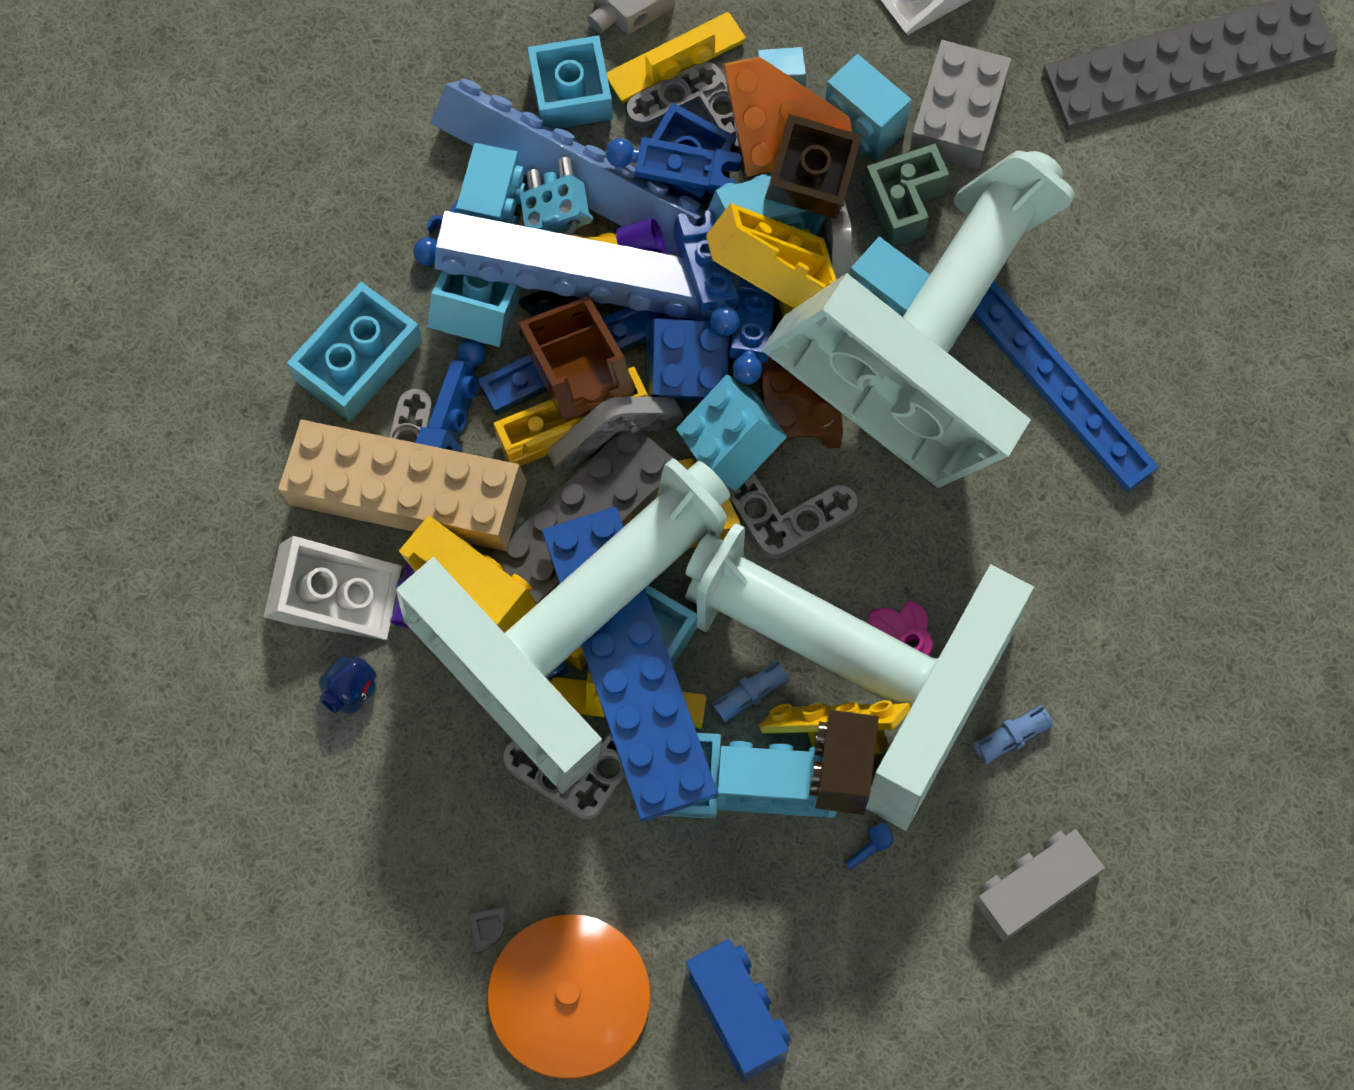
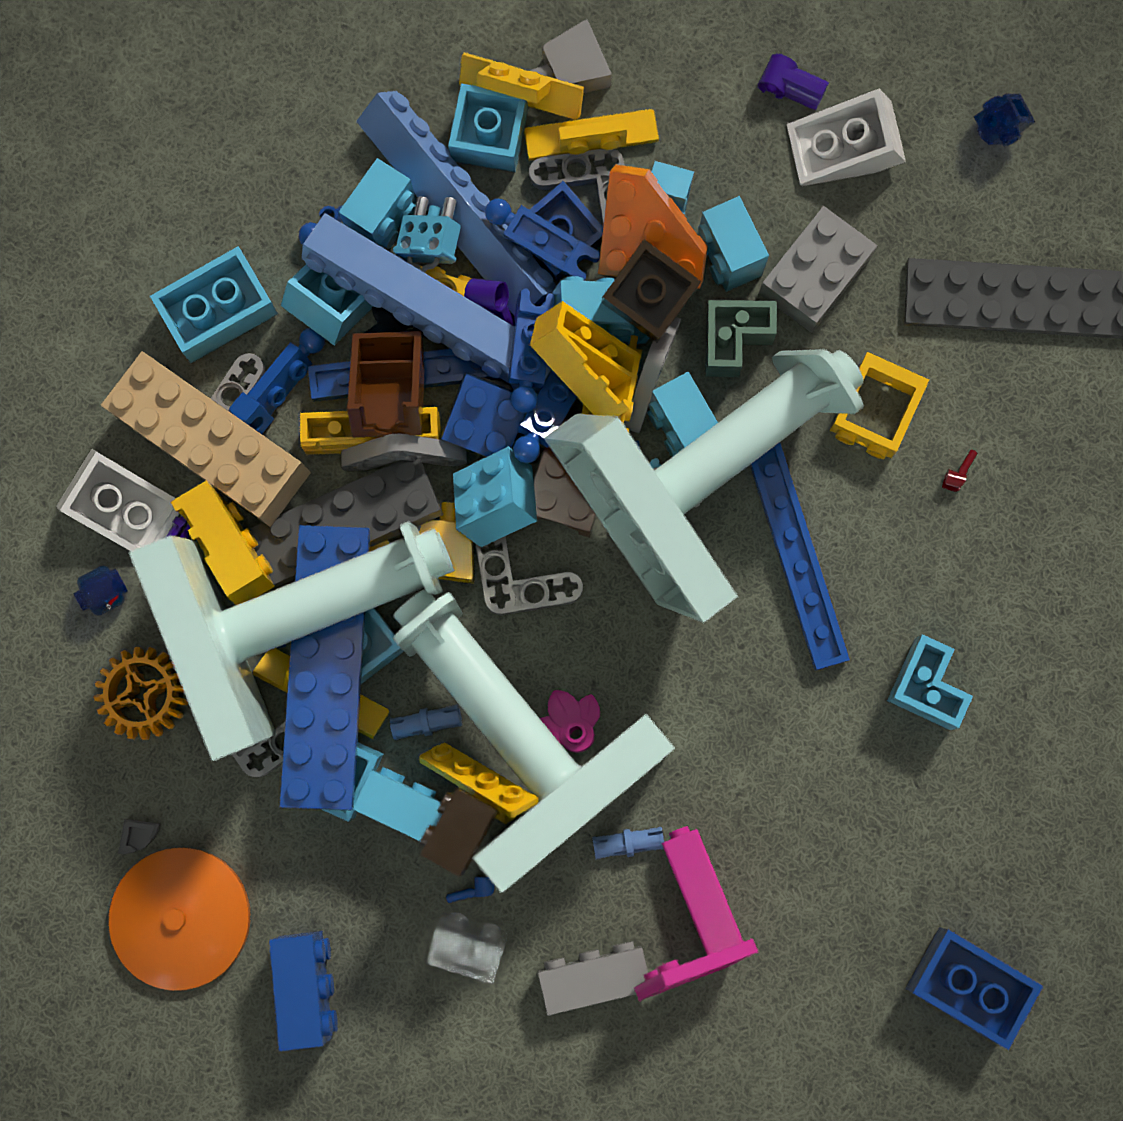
camera: 25 degrees right, 10 degrees up
(421, 786) = (134, 678): none -> light orange gear
(613, 29) = (538, 90): none -> yellow bracket
(892, 905) = (467, 947): none -> clear bracket
(1093, 250) = (895, 377): none -> yellow window
(1134, 768) = (709, 913): none -> dark pink piece
(1184, 258) = (954, 480): none -> dark red hand
(1244, 466) = (921, 688): none -> medium azure brick

